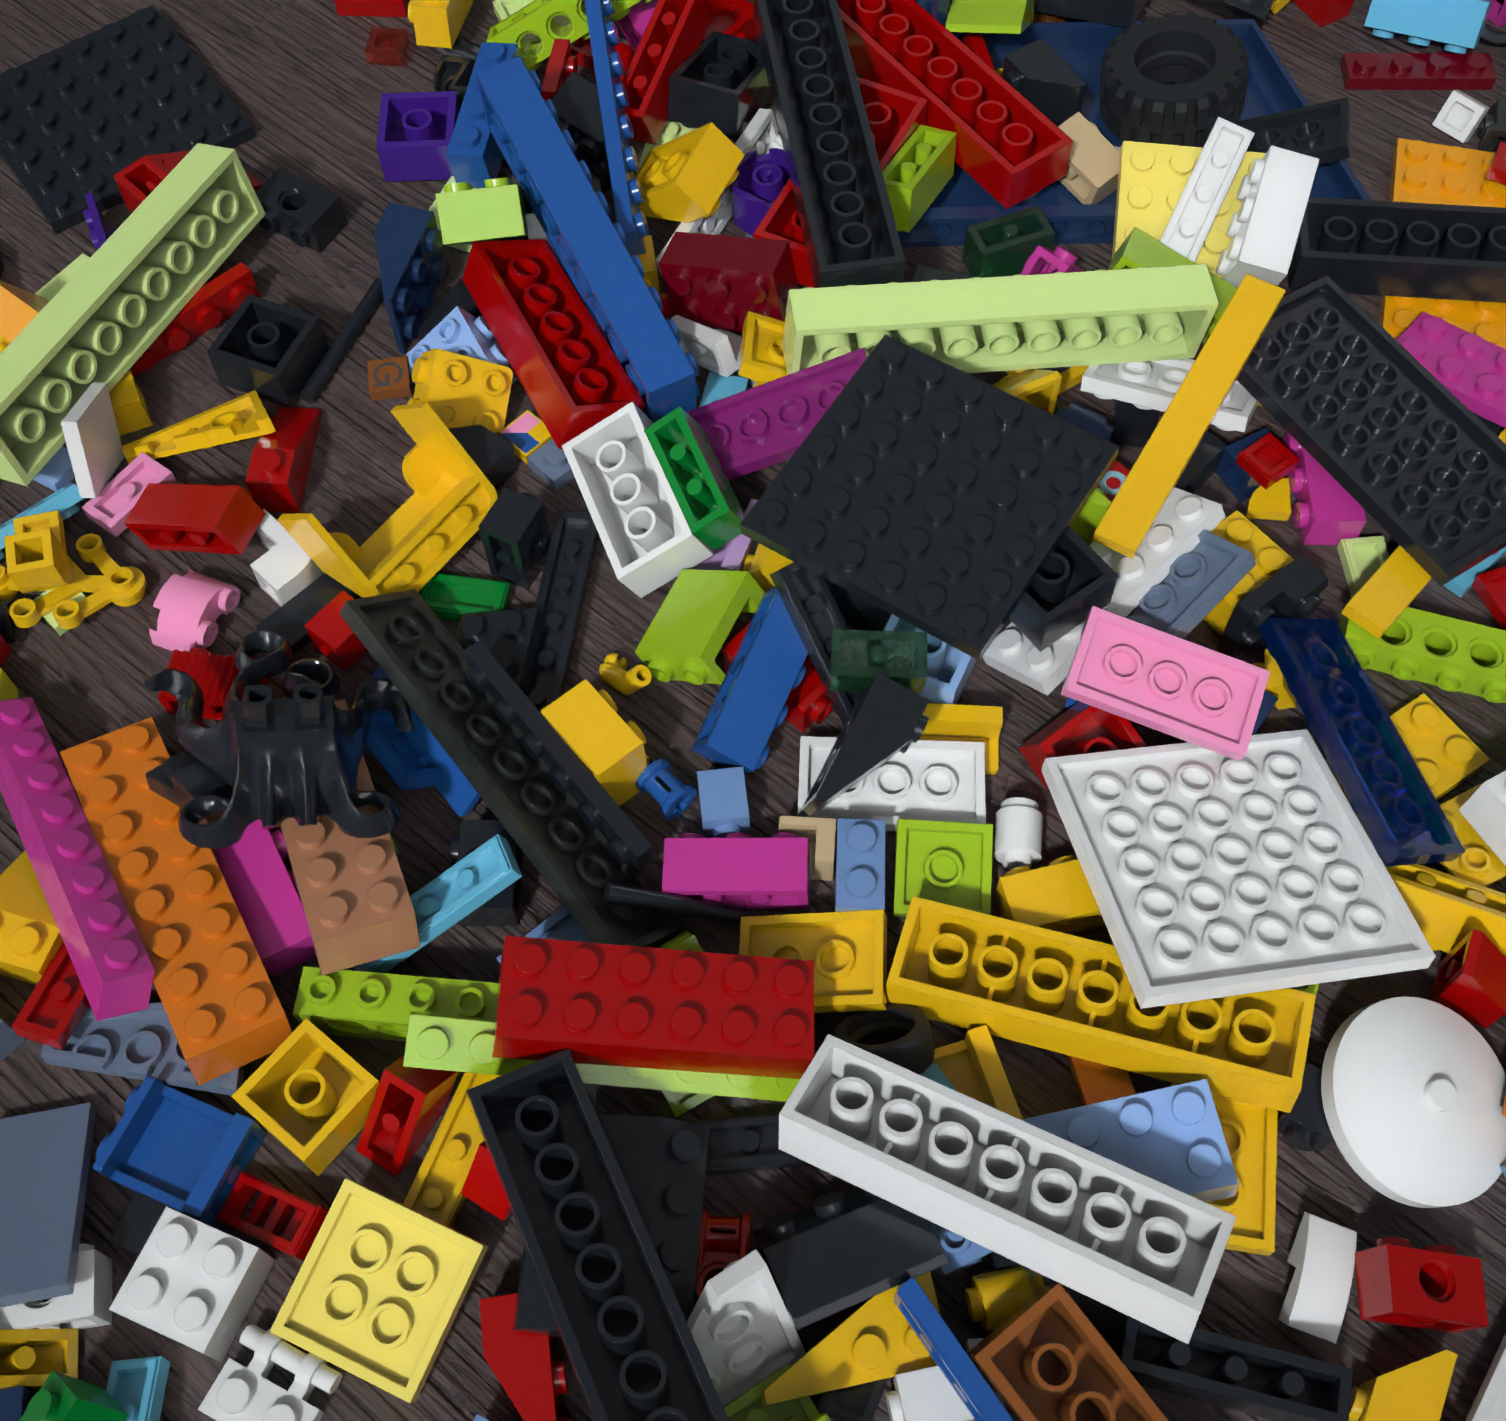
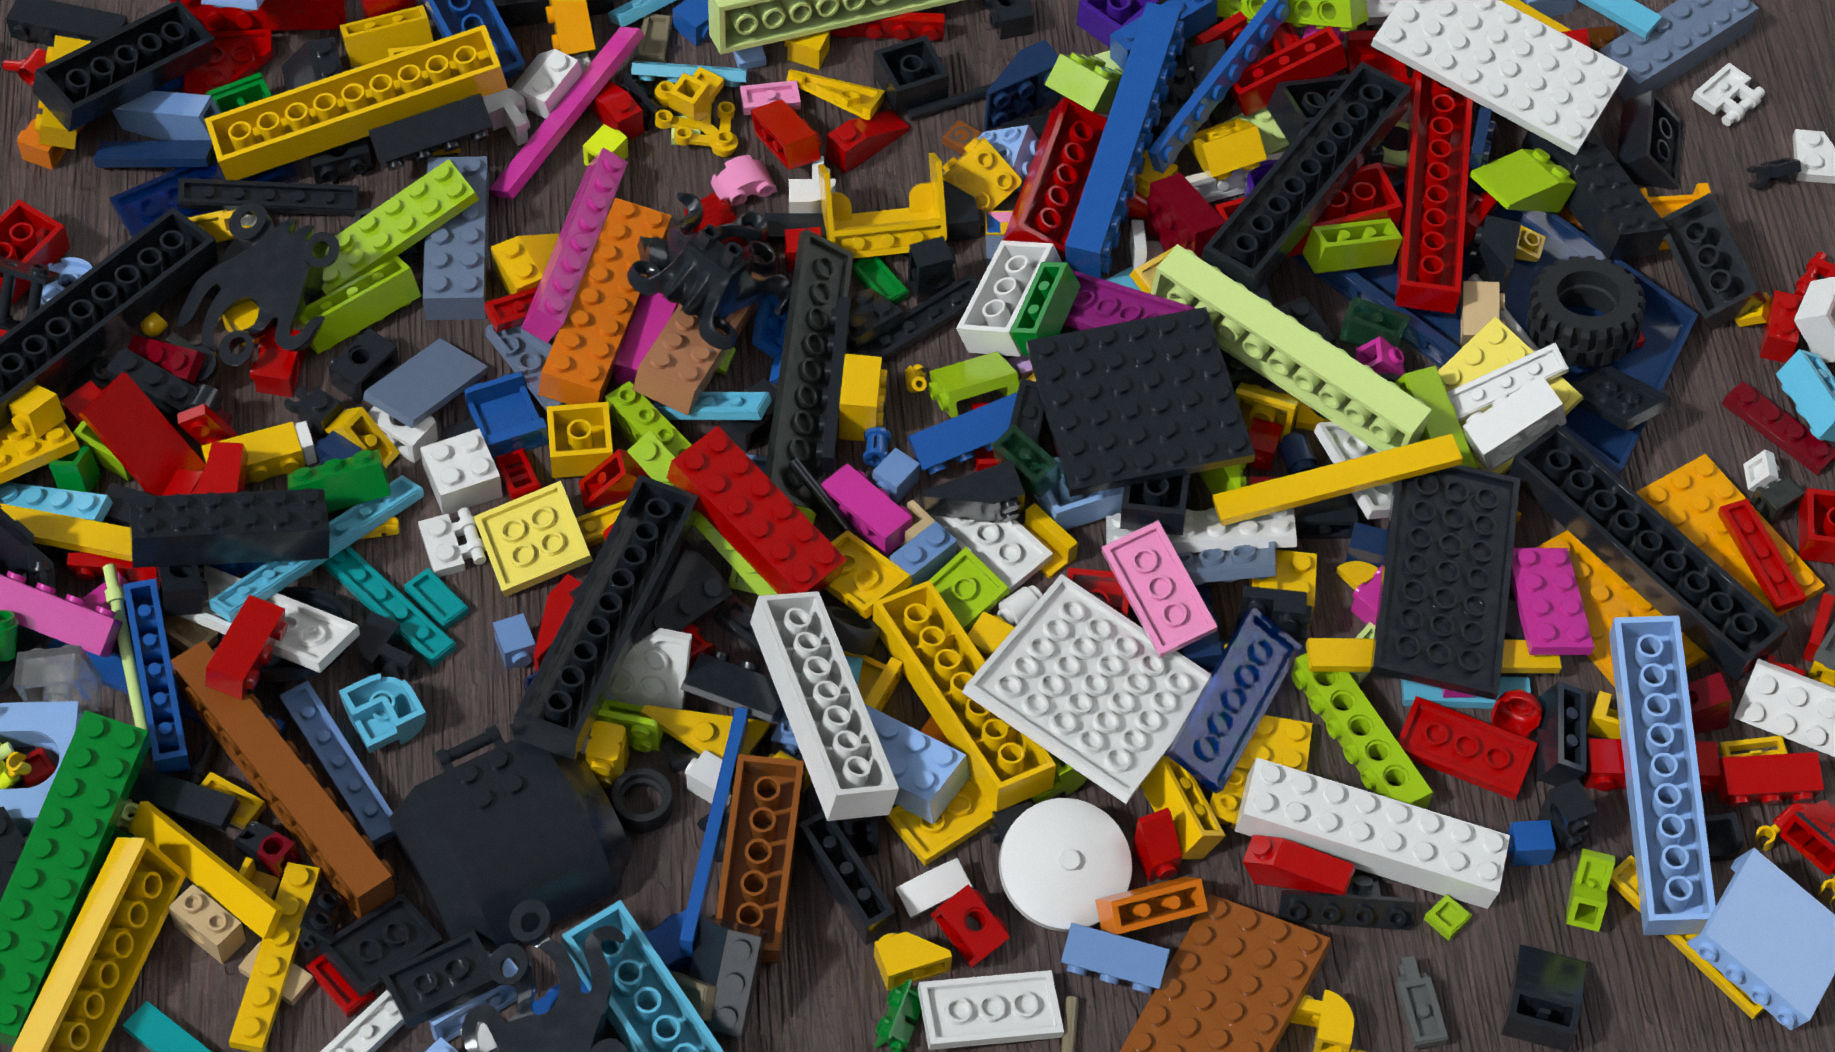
camera: 40 degrees right, 5 degrees down
(92, 440) = (774, 55): white tile -> none
(1267, 460) = (1366, 545): red tile -> none

